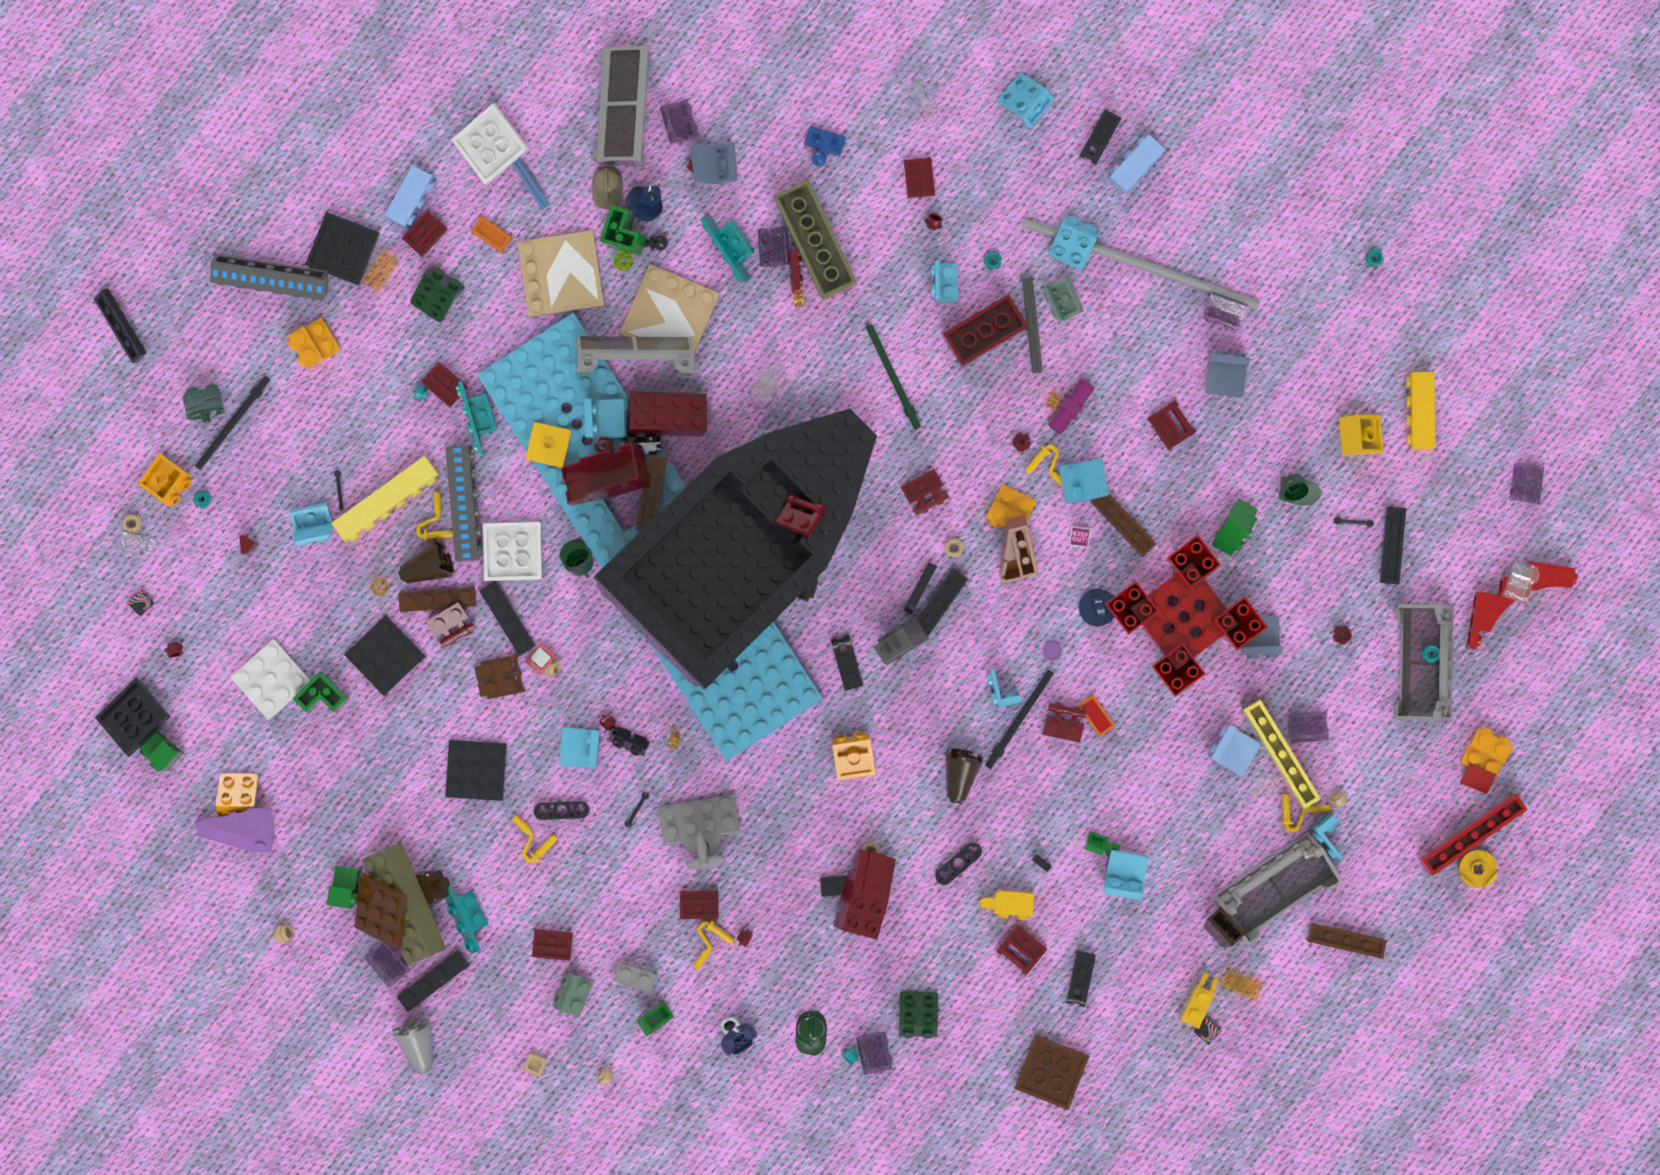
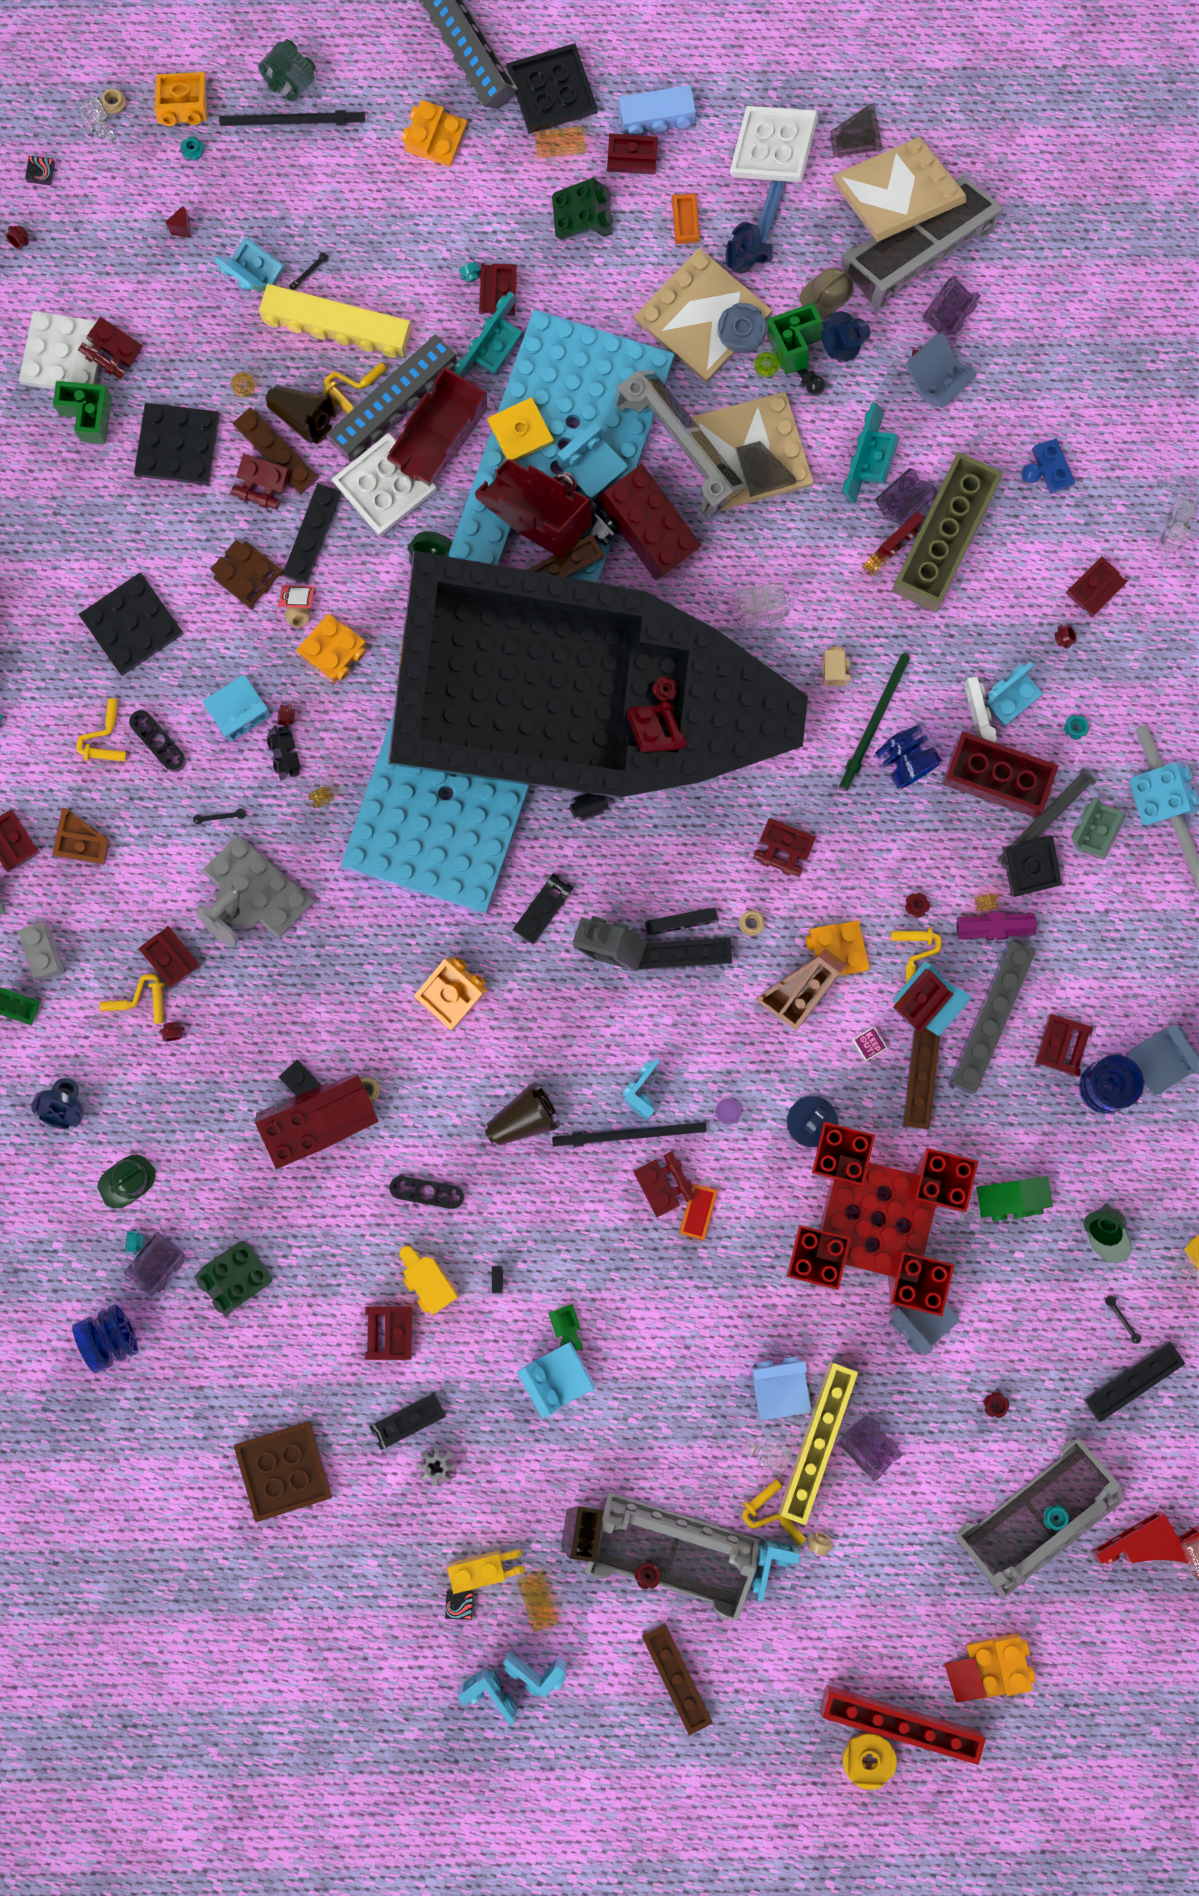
camera: 40 degrees right, 5 degrees down
(290, 644) = (113, 342): none -> dark red plate
(506, 493) = (438, 427): none -> dark red piece
(522, 86) = (857, 134): none -> clear smoke wing
(542, 216) = (746, 248): none -> dark blue tile
(580, 93) = (899, 189): none -> tan plate
(585, 903) = (79, 841): none -> dark orange wing
(588, 662) = (332, 648): none -> light orange plate
(589, 258) = (742, 328): none -> sand blue tile
(687, 318) = (762, 469): none -> clear smoke wing
(785, 490) = (663, 695): none -> dark red plate
(842, 373) = (834, 667): none -> tan brick
(895, 1113) = (99, 1341): none -> clear blue wheel
(931, 376) = (908, 757): none -> clear blue wheel
(940, 311) = (980, 714): none -> white hinge
(1053, 356) = (1032, 865): none -> black plate
(1081, 487) = (923, 1000): none -> dark red plate
(1114, 980) = (427, 1467): none -> light grey piece
(1122, 454) = (991, 1017): none -> dark grey brick
(1213, 407) = (1117, 1071): none -> clear blue wheel
(1261, 1059) = (474, 1689): none -> medium azure bracket
(1277, 906) = (643, 1582): none -> dark red plate
(1290, 1010) = (536, 1685): none -> medium azure bracket

